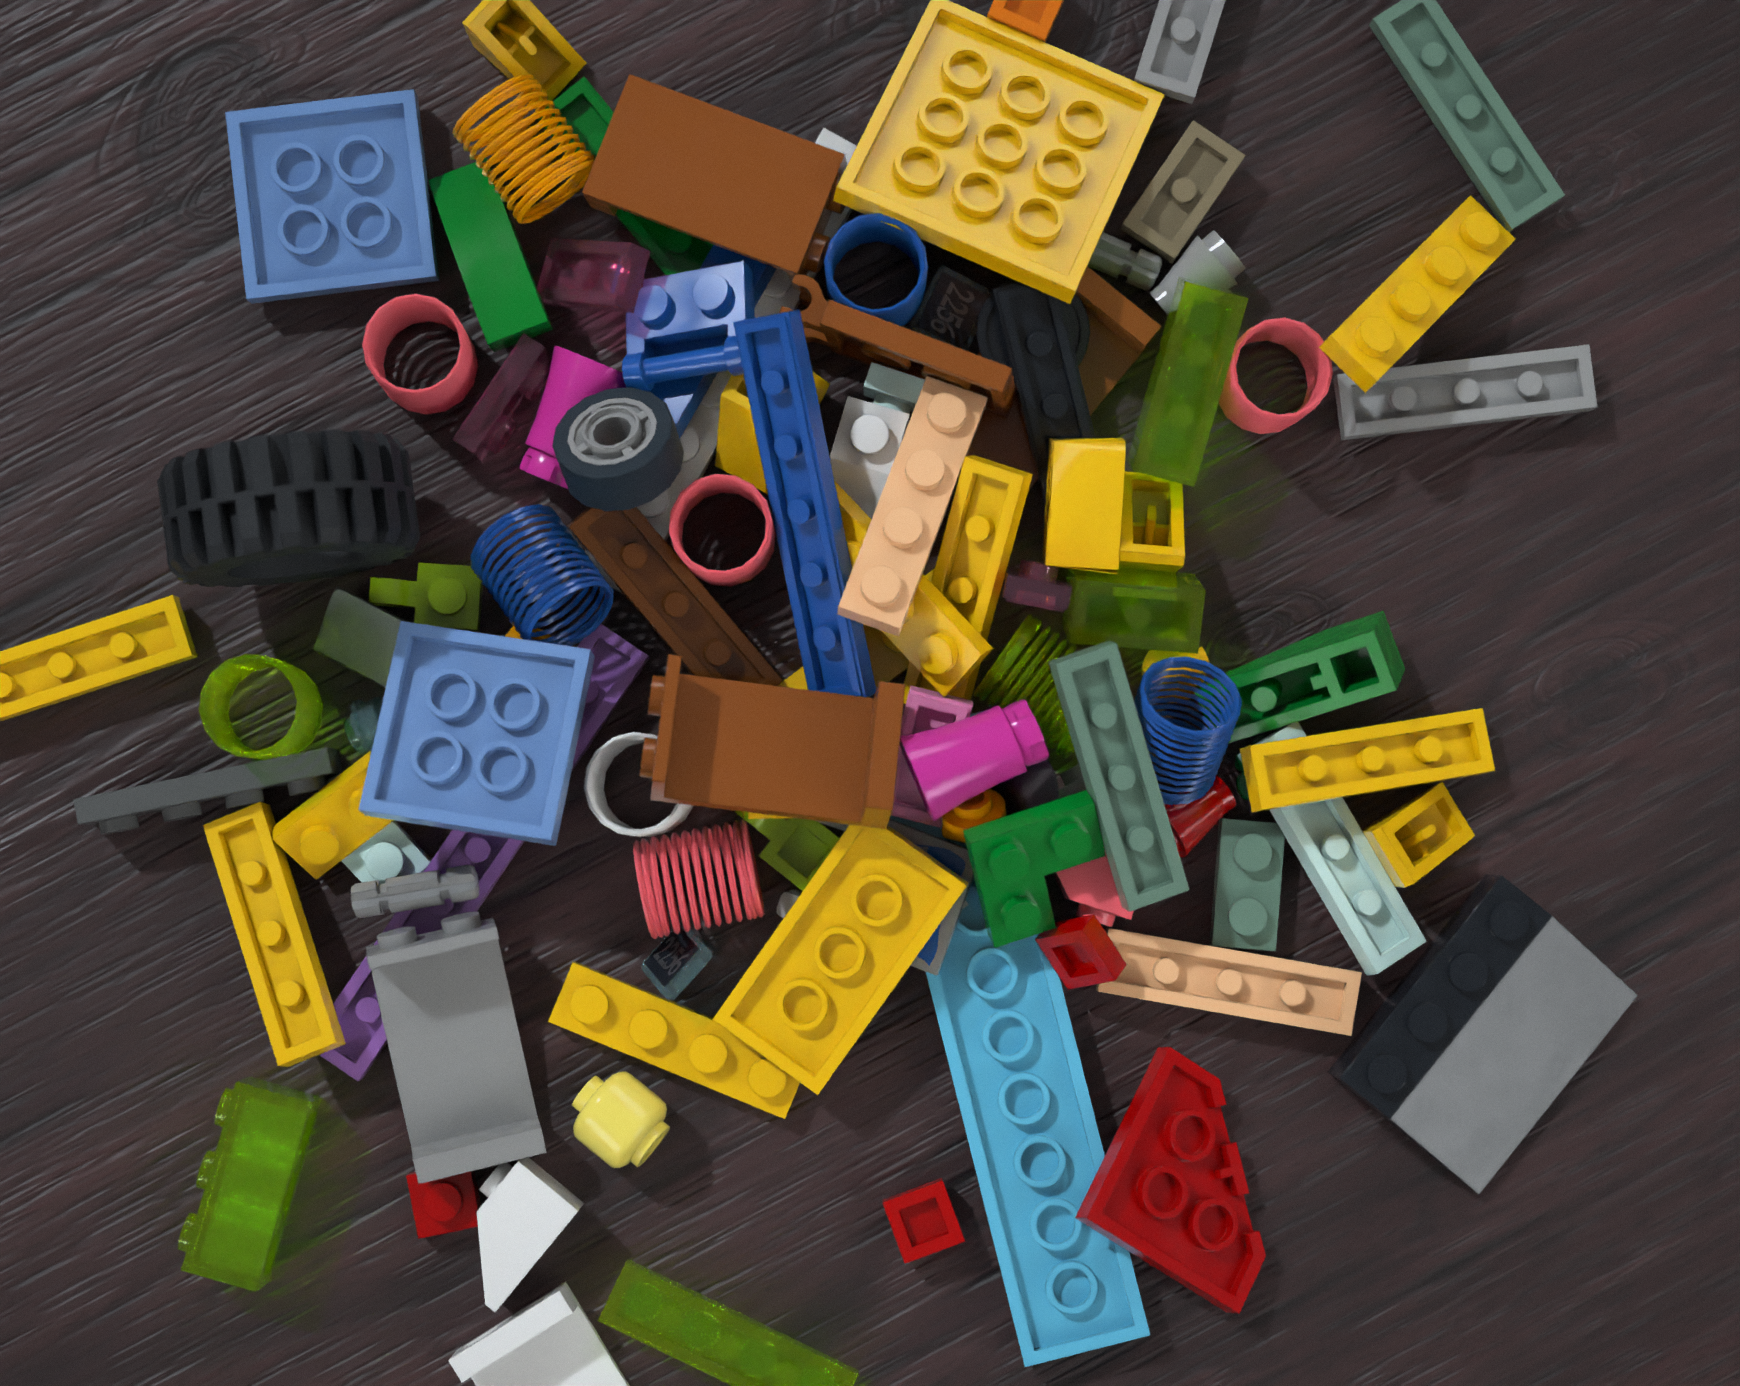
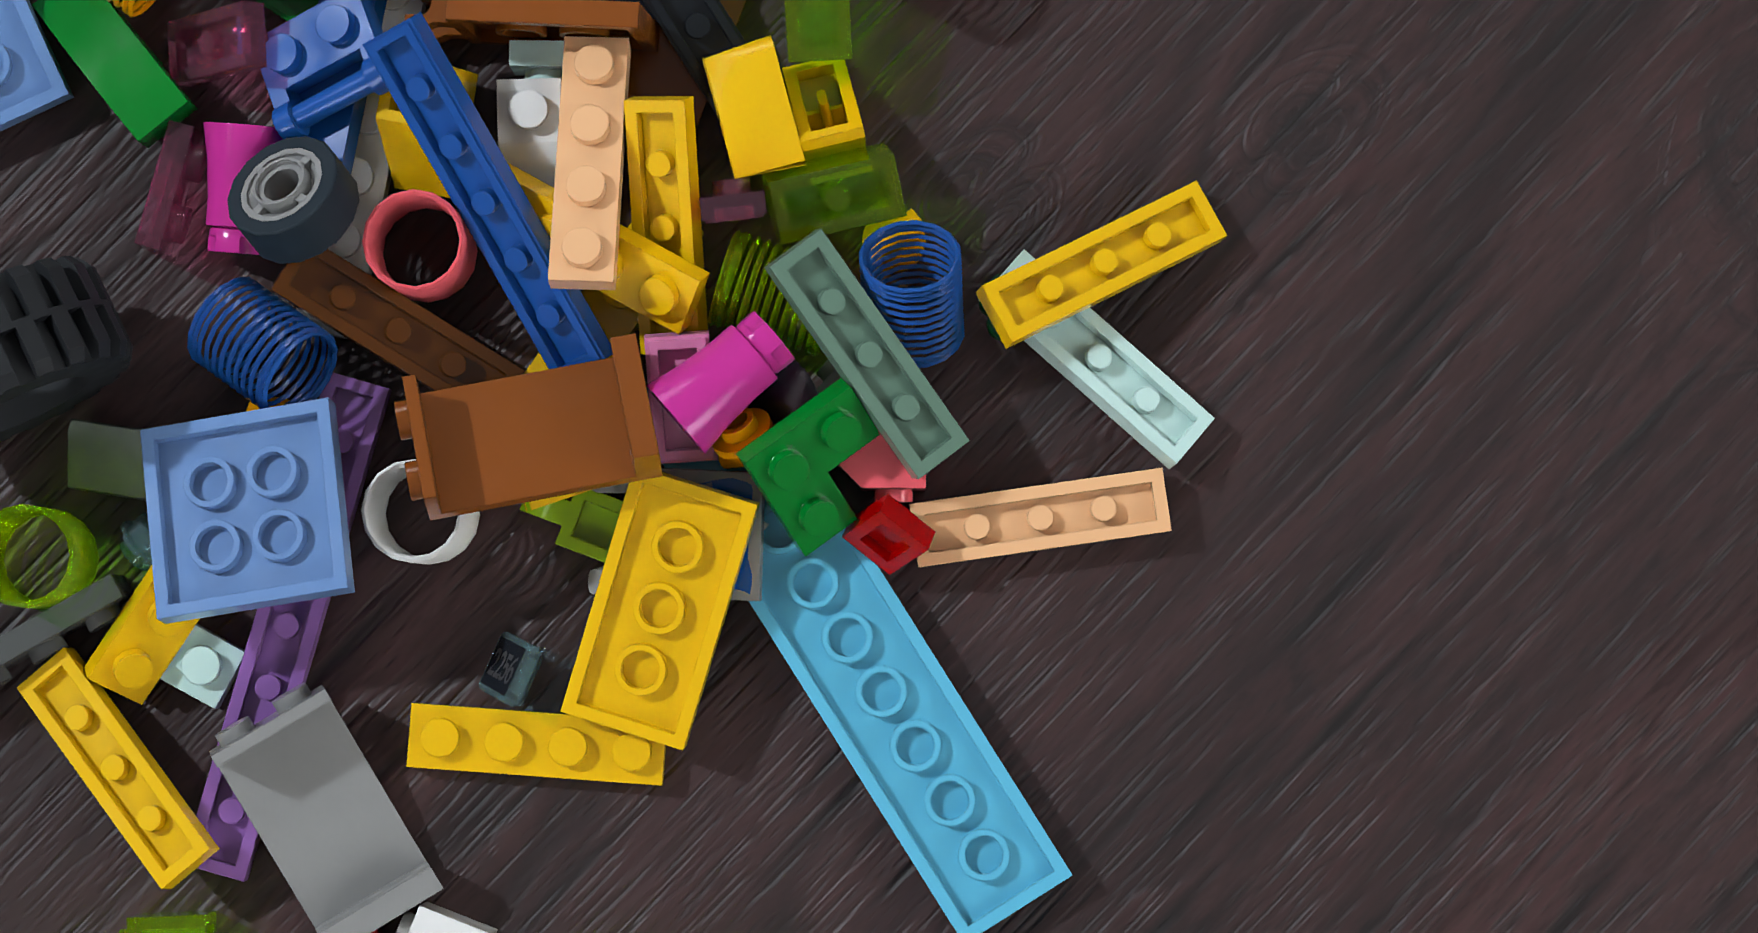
camera: 15 degrees left, 0 degrees up
(394, 318) = (43, 144): coral piece -> none
(415, 891) = (238, 683): light grey axle -> none
(441, 595) = (170, 396): lime plate -> none
(620, 1119) = (504, 836): light yellow head -> none
(651, 888) = (464, 610): coral piece -> none
(923, 1220) = (824, 838): red plate -> none
(1179, 1185) = (1053, 726): red plate -> none
(1195, 820) = (957, 375): red cone -> none
(1247, 885) = (1029, 420): sand green plate -> none
(1315, 676) = (1026, 203): green slope -> none
(1418, 835) = (1175, 319): yellow slope -> none
(1484, 1031) = (1298, 487): slope -> none

